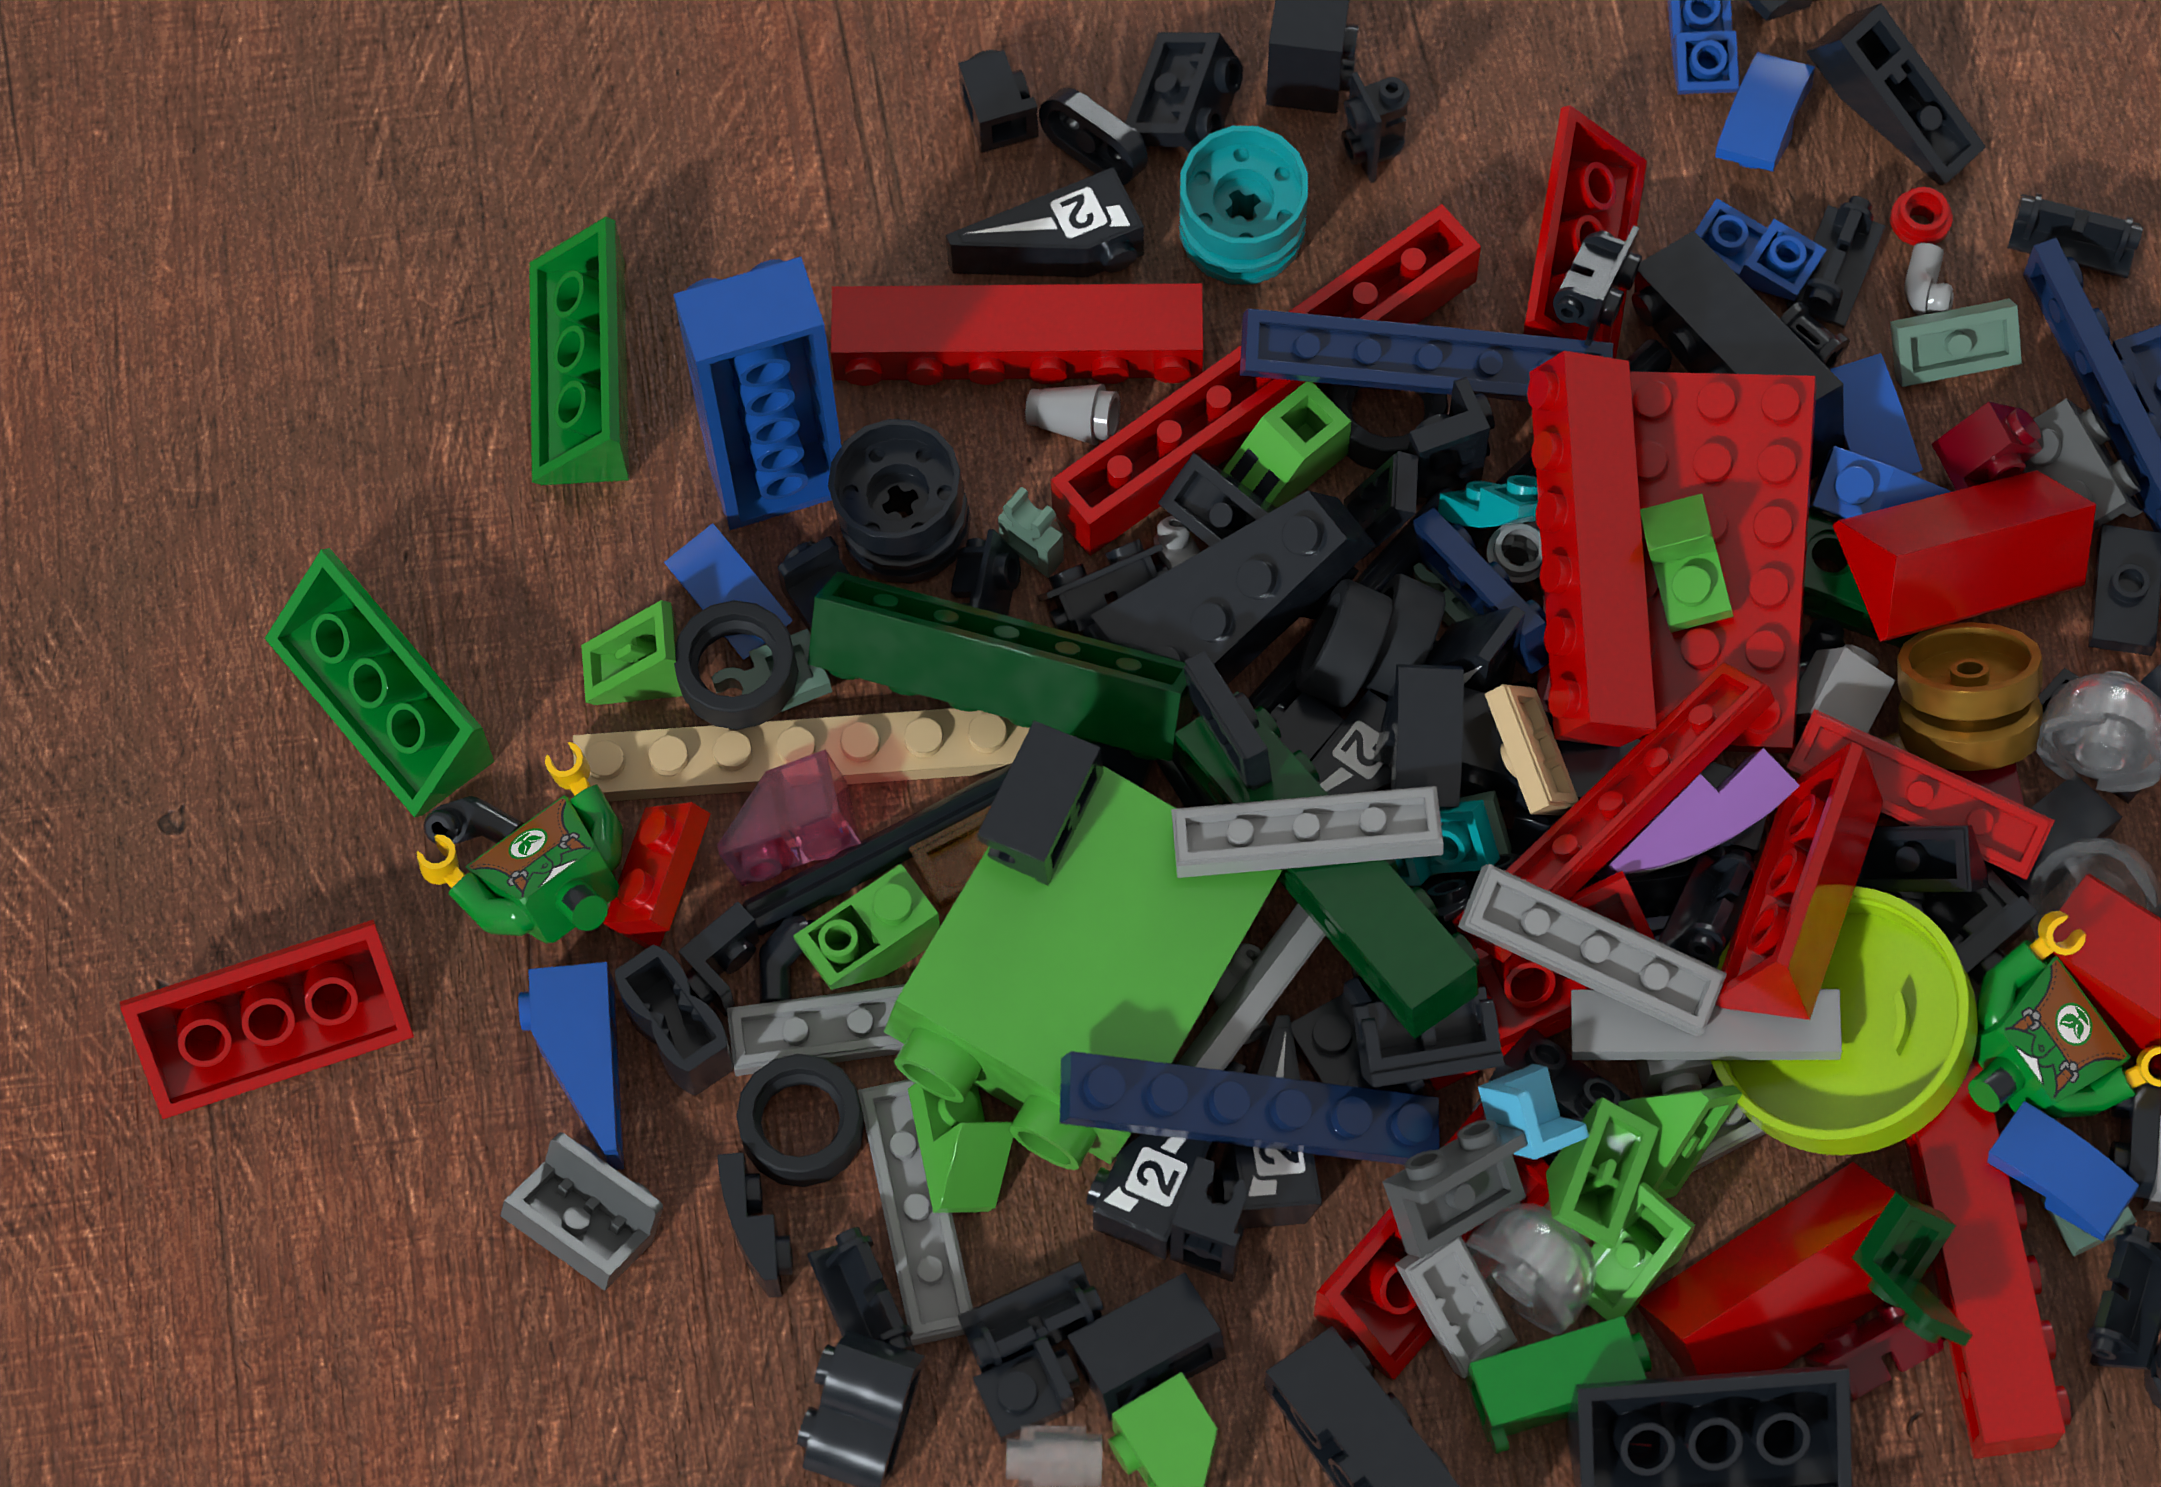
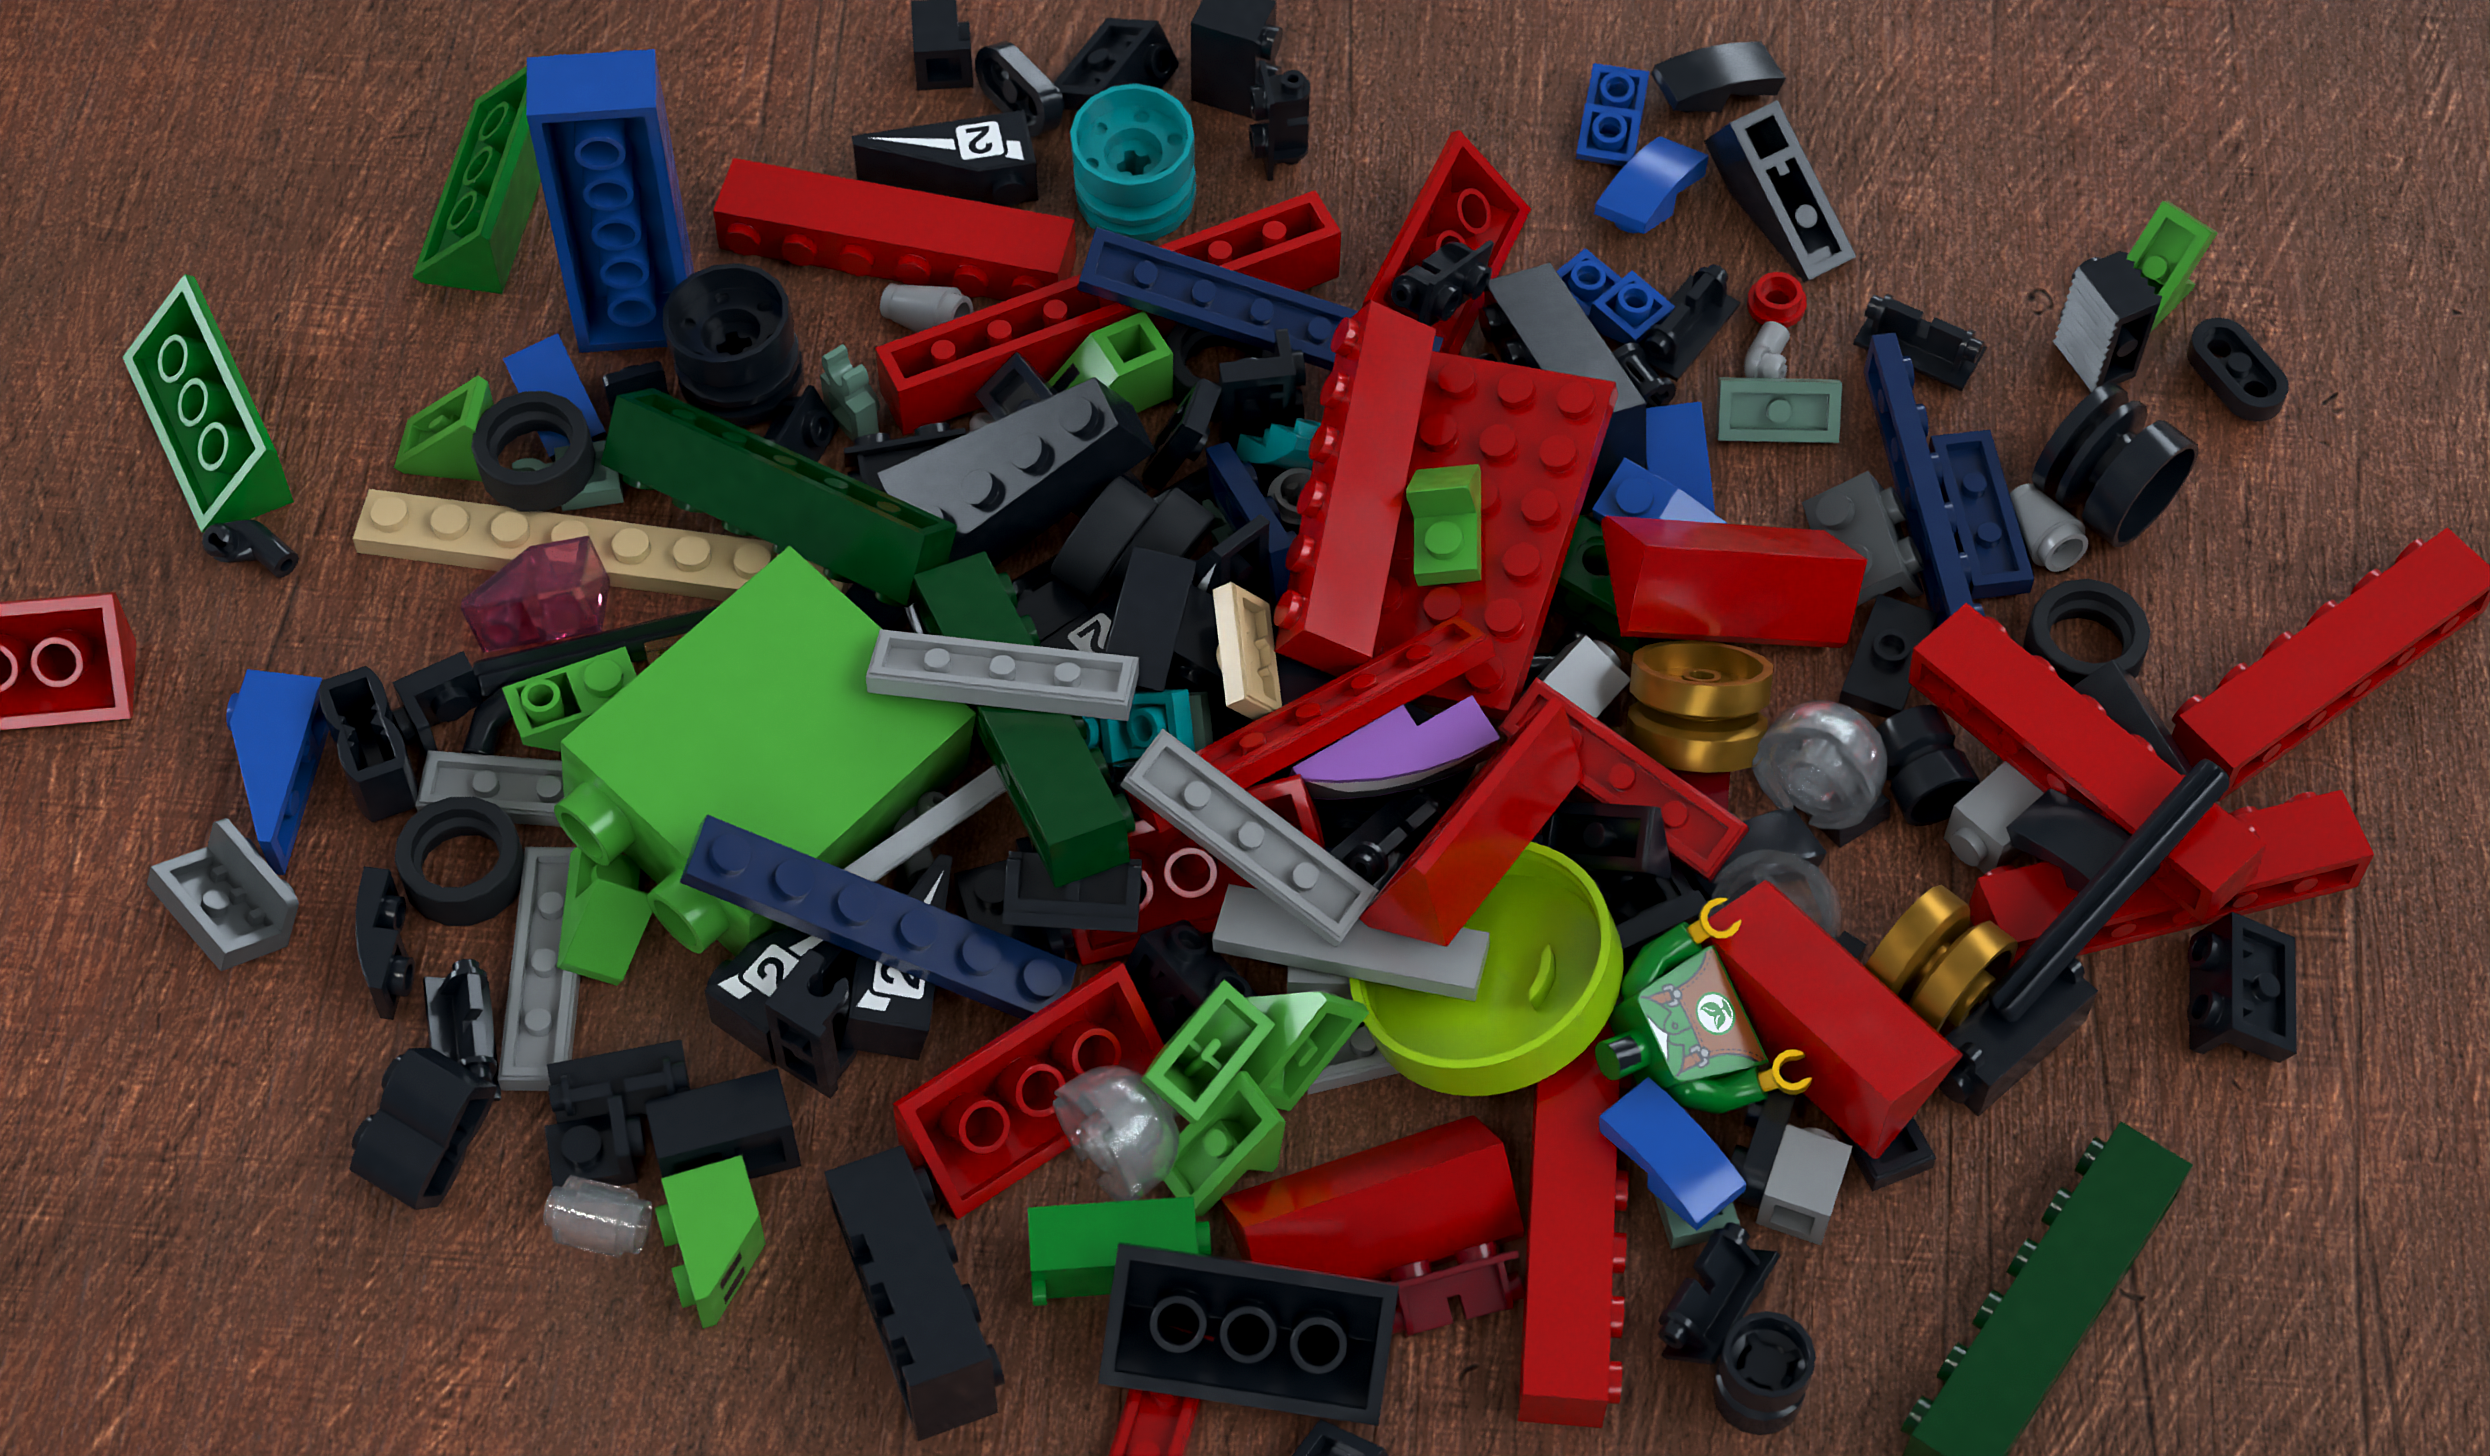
camera: 10 degrees right, 10 degrees down
(547, 871) = (296, 592): green torso -> none
(657, 871) = (402, 616): red bracket -> none
(1041, 801) = (754, 592): black hinge -> none
(1229, 720) = (963, 565): black plate -> none
(1456, 1186) = (1055, 1032): dark grey bracket -> none
(1457, 1305) = (1033, 1147): light grey plate -> none
(1529, 1104) = (1146, 979): medium azure panel -> none
(1897, 1257) = (1484, 1197): dark green bracket -> none
(1988, 445) = (1782, 494): dark red brick -> none

